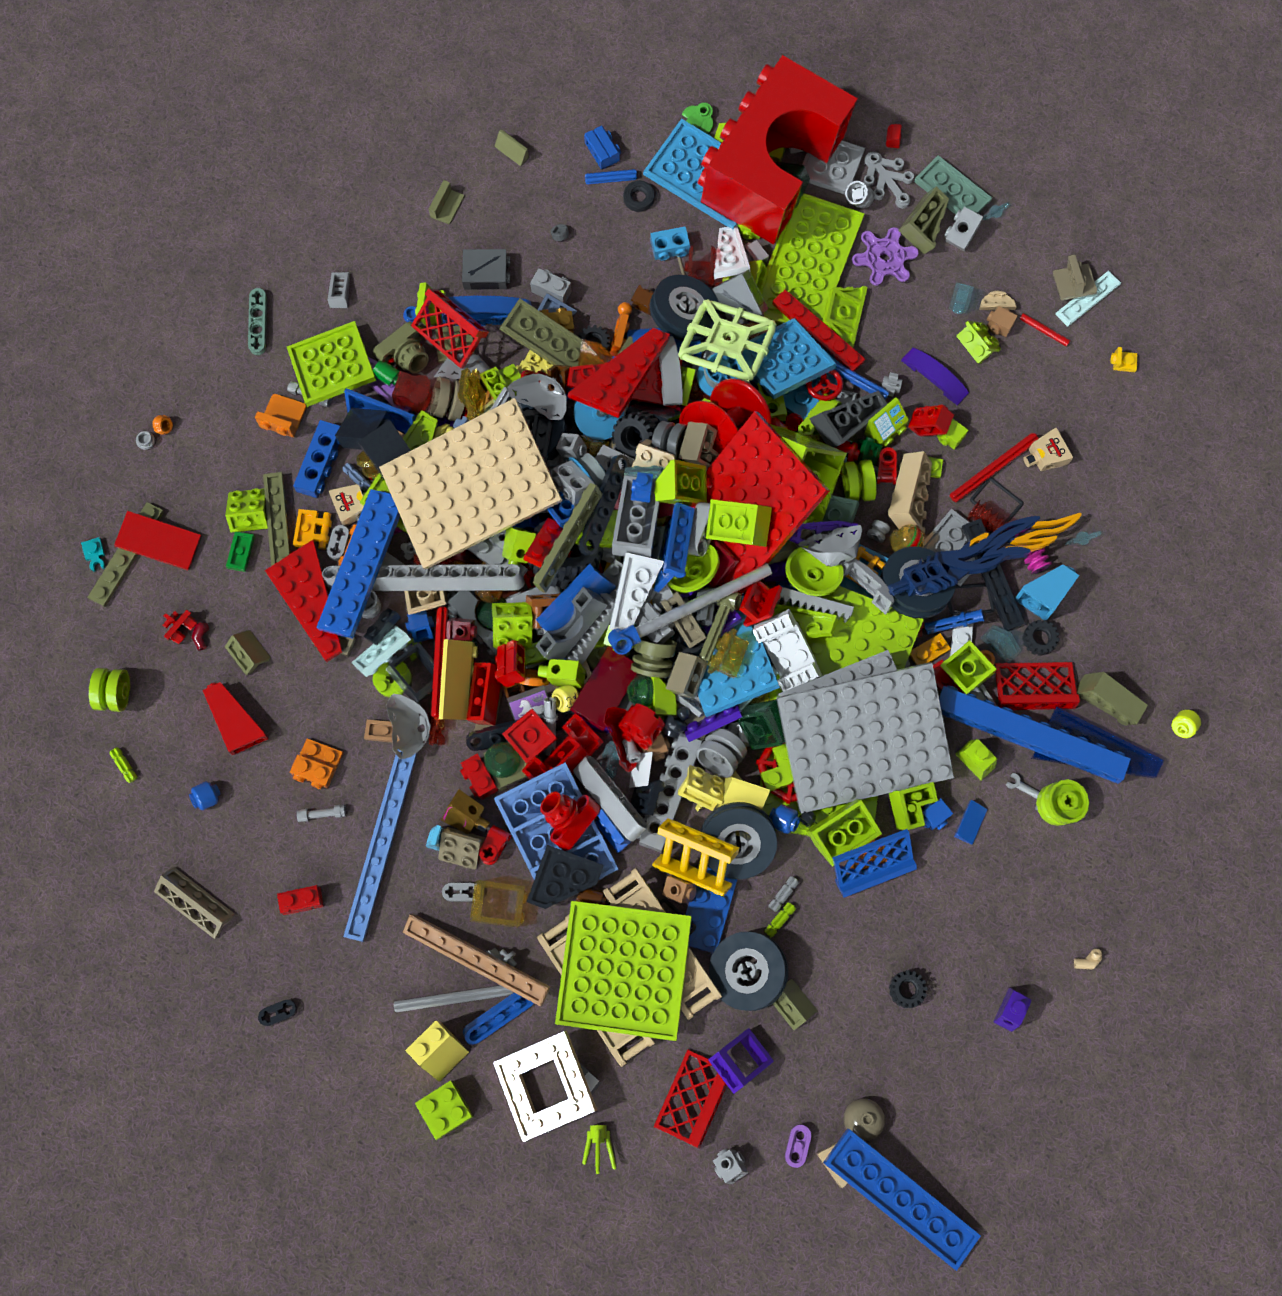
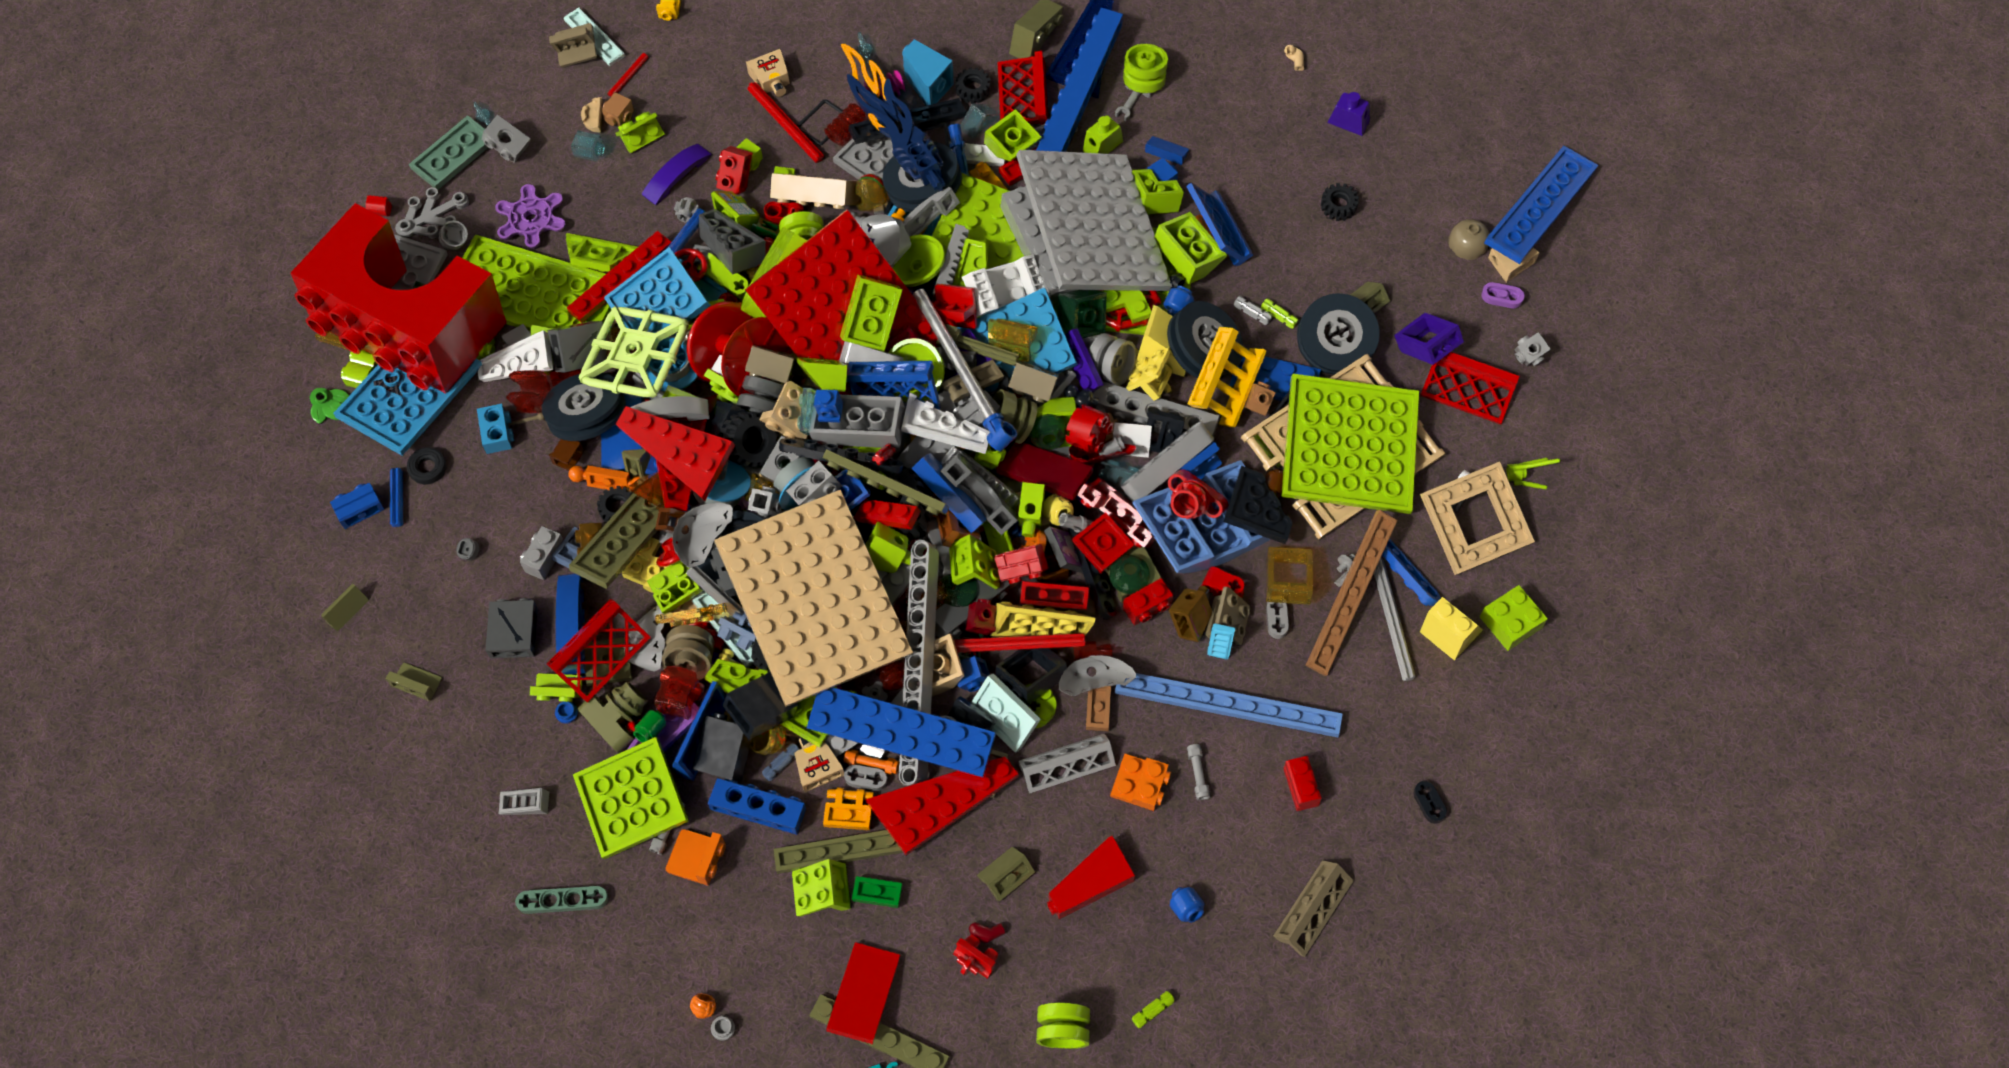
camera: 90 degrees left, 10 degrees down
(341, 701) = (1065, 755): none -> light grey fence
(597, 536) = (884, 454): none -> red axle
(924, 221) = (490, 176): olive wedge -> none

